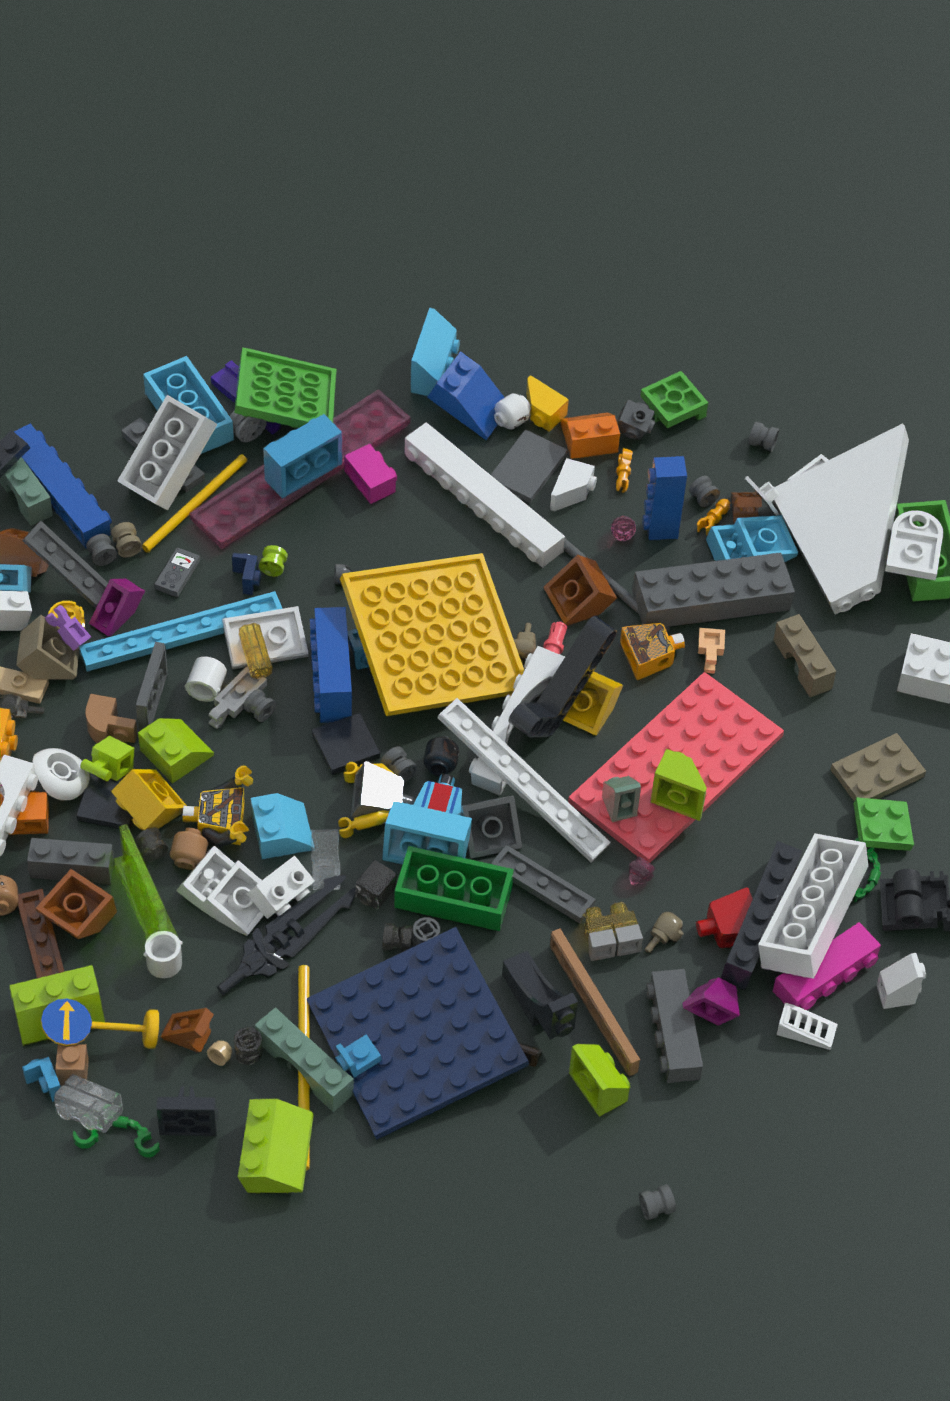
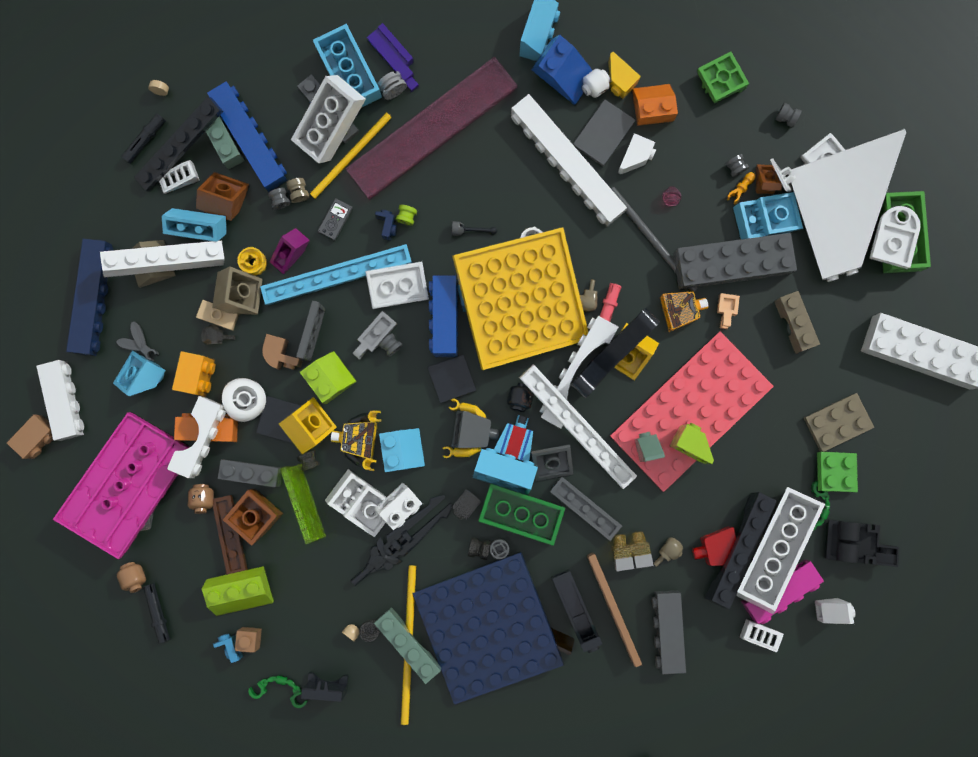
camera: 10 degrees right, 30 degrees up
(66, 563) = (250, 217): dark grey plate -> none
(69, 1023) = (244, 616): piece -> none
(70, 629) = (252, 278): medium lavender plate -> none
(88, 1103) = (257, 673): clear brick -> none
(110, 759) = (280, 389): lime brick -> none
(163, 954) = (313, 554): white piece -> none
(188, 848) = (334, 466): medium nougat head -> none
(189, 1029) = (329, 614): dark orange slope -> none
(205, 679) = (352, 321): white piece -> none
(255, 650) = (388, 302): clear yellow axle -> none
(275, 1147) = (384, 714): lime slope -> none
(283, 389) = (421, 59): bright green plate -> none
(302, 455) = (431, 126): dark azure brick -> none
(324, 856) = (431, 478): clear slope -> none
(358, 1056) = (444, 650): dark azure bracket -> none
(370, 473) = (483, 136): dark pink brick -> none
(397, 762) = (492, 405): dark grey wheel -> none
(579, 591) = (634, 254): dark orange slope -> none
(598, 1078) = (612, 673): lime slope -> none
(623, 470) = (678, 132): light orange piece -> none
(635, 420) = (690, 96): dark grey brick -> none
(636, 873) = (657, 501): clear pink plate -> none
(664, 498) = (708, 184): blue brick -> none
(714, 1001) = (698, 618): magenta slope -> none

